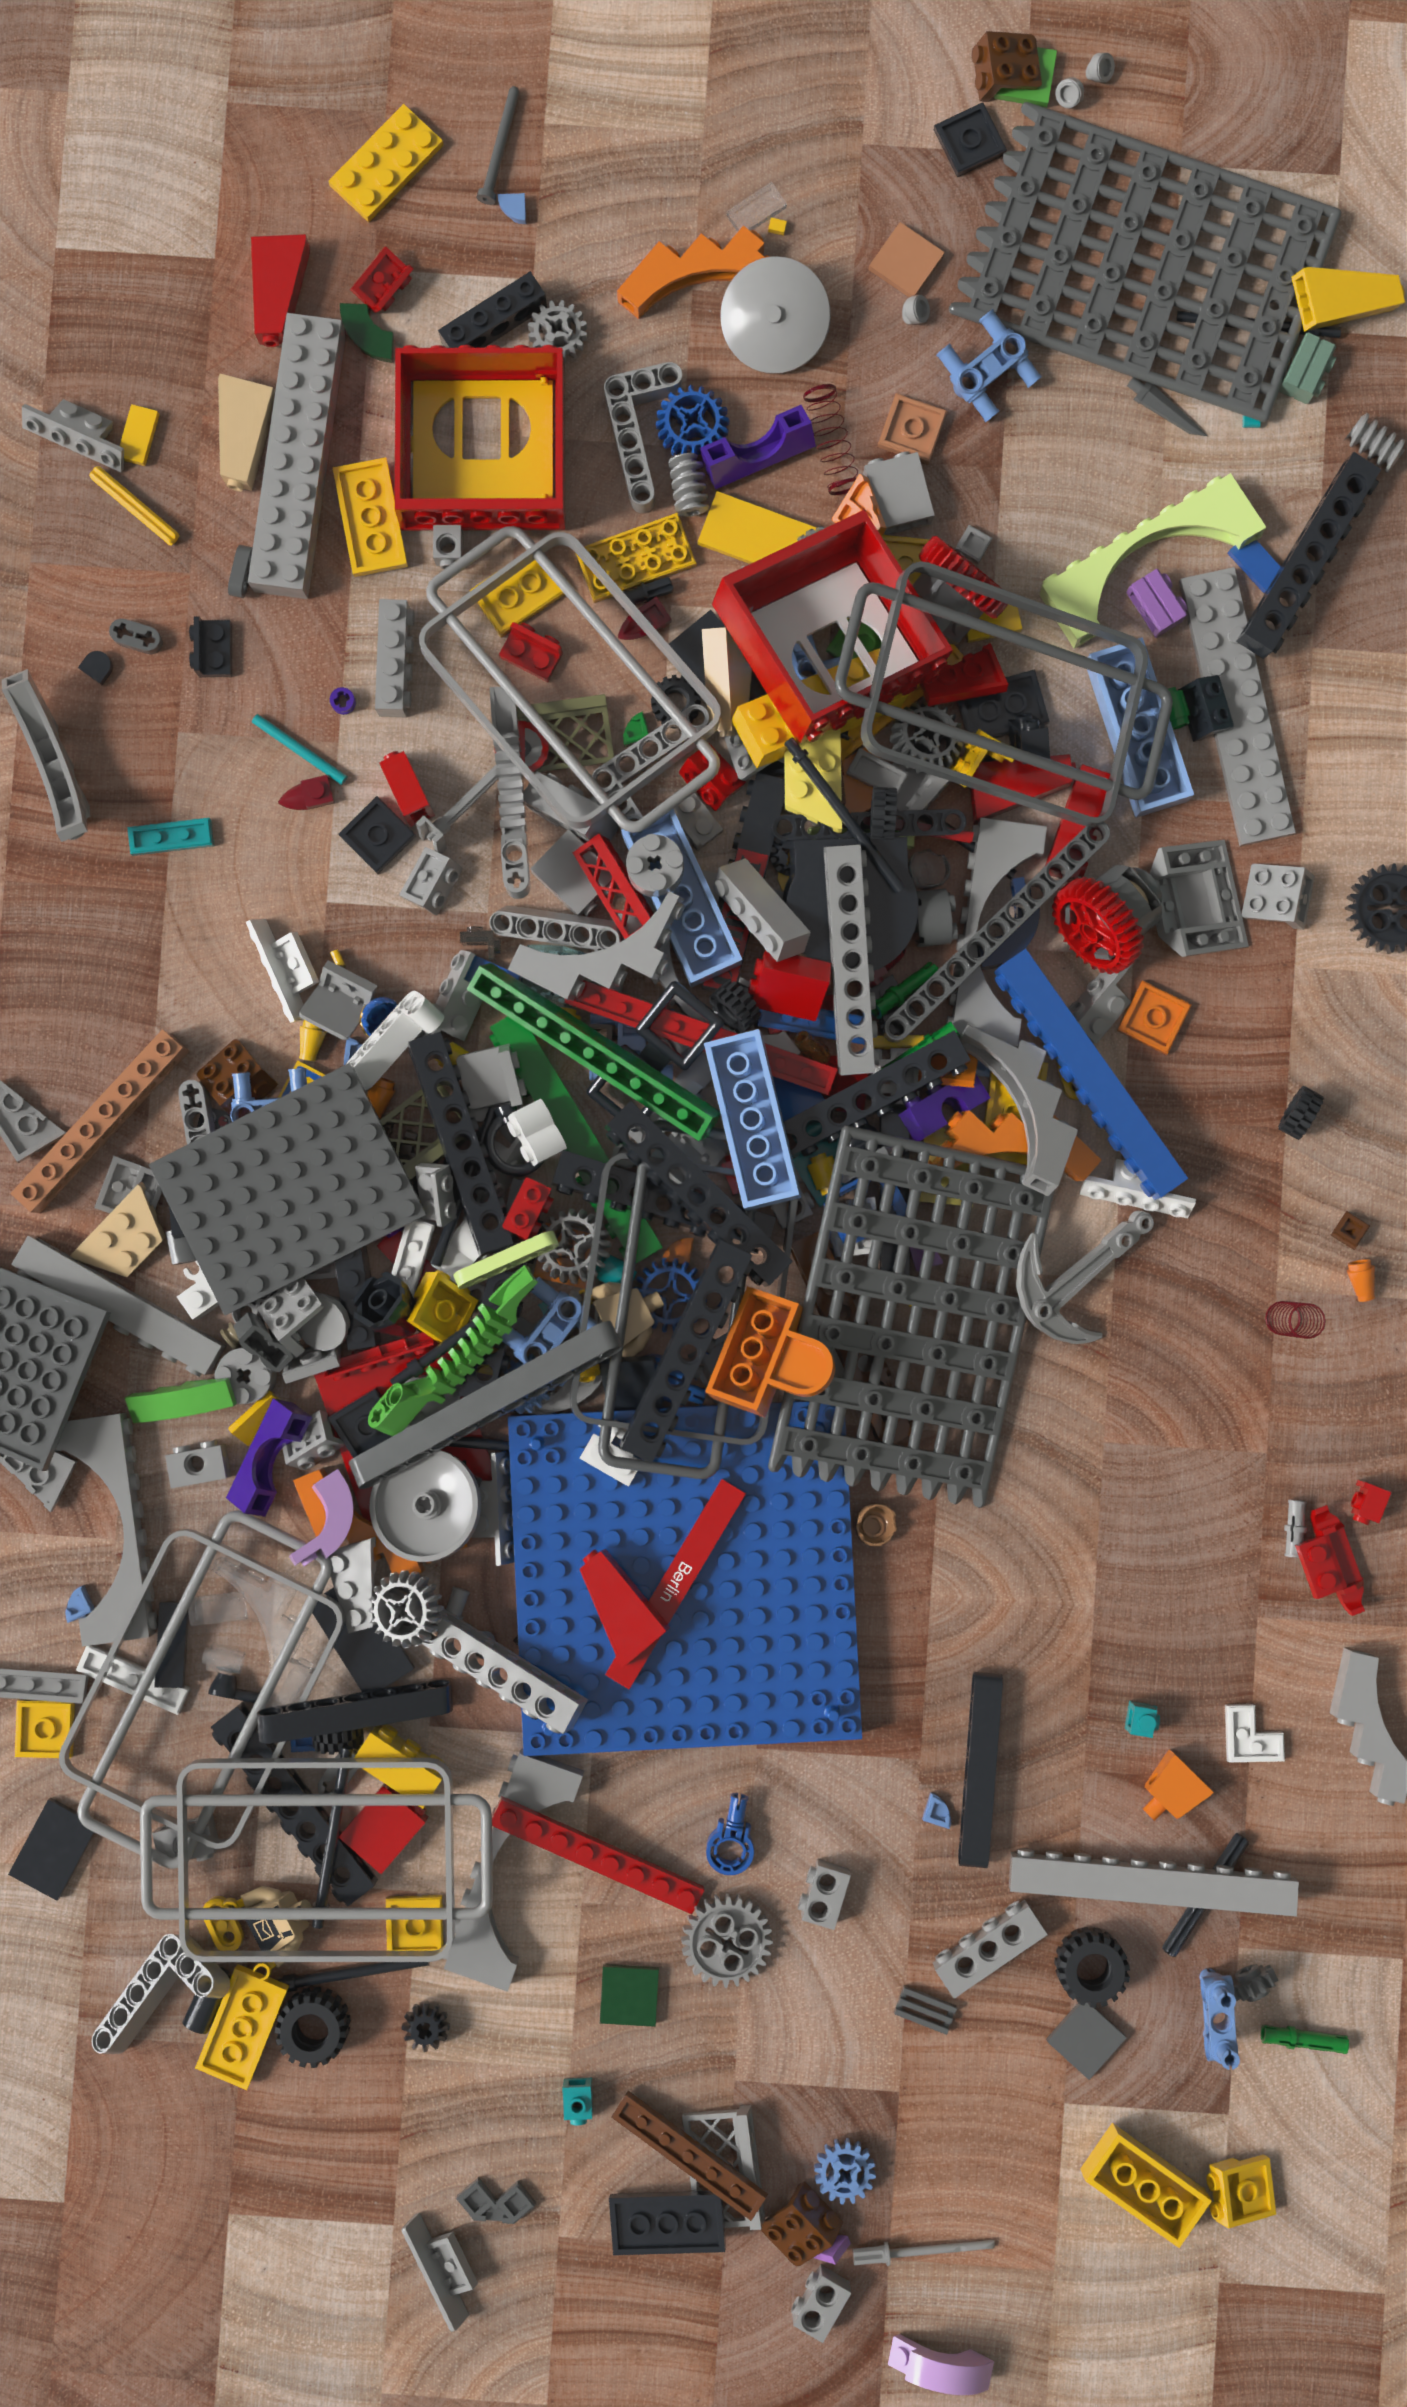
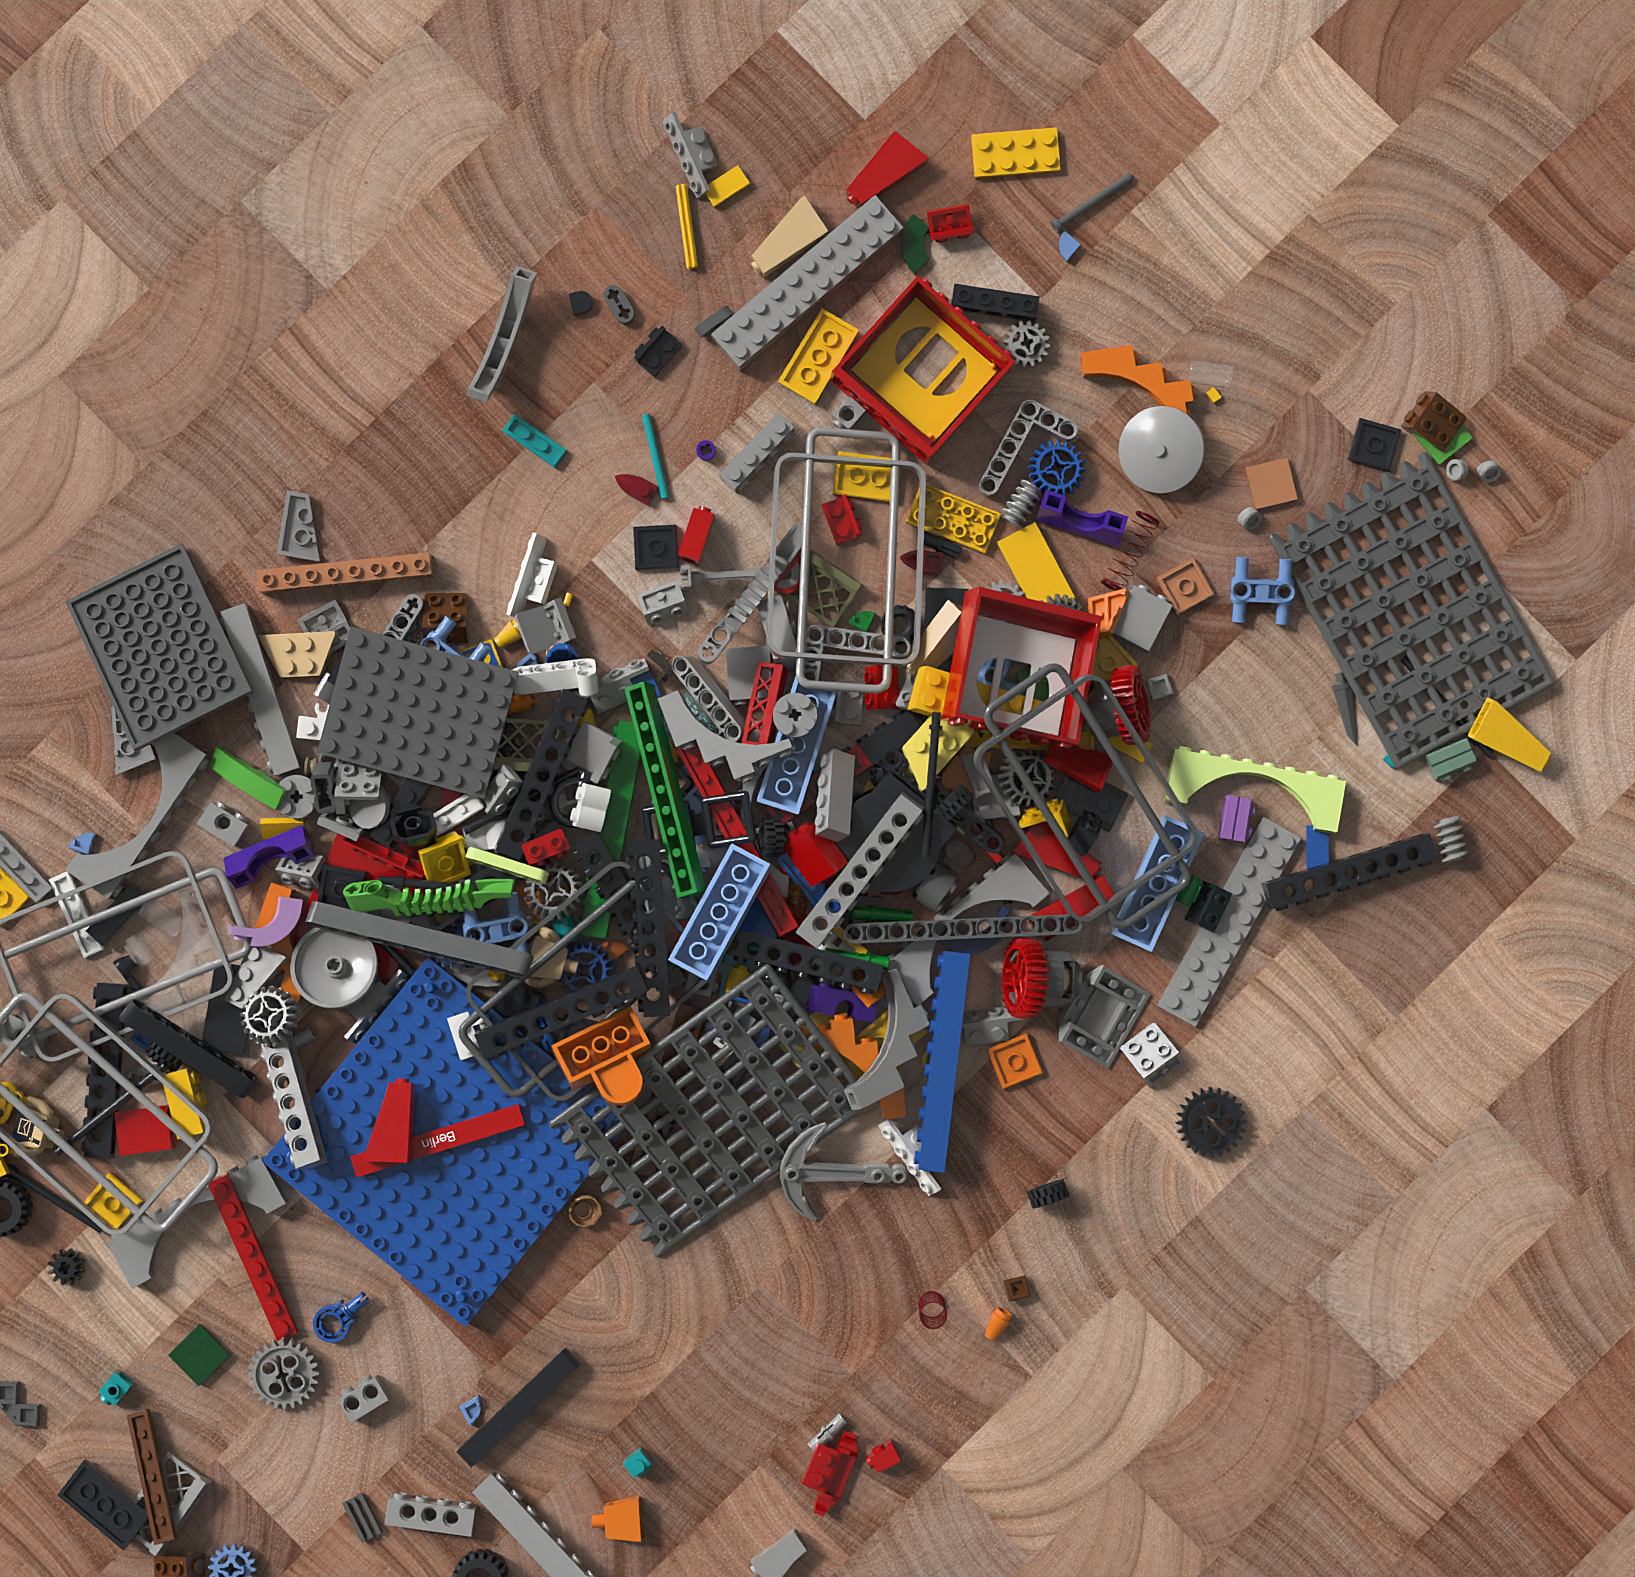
camera: 40 degrees right, 0 degrees up
(1243, 1741) = (686, 1531): white tile -> none

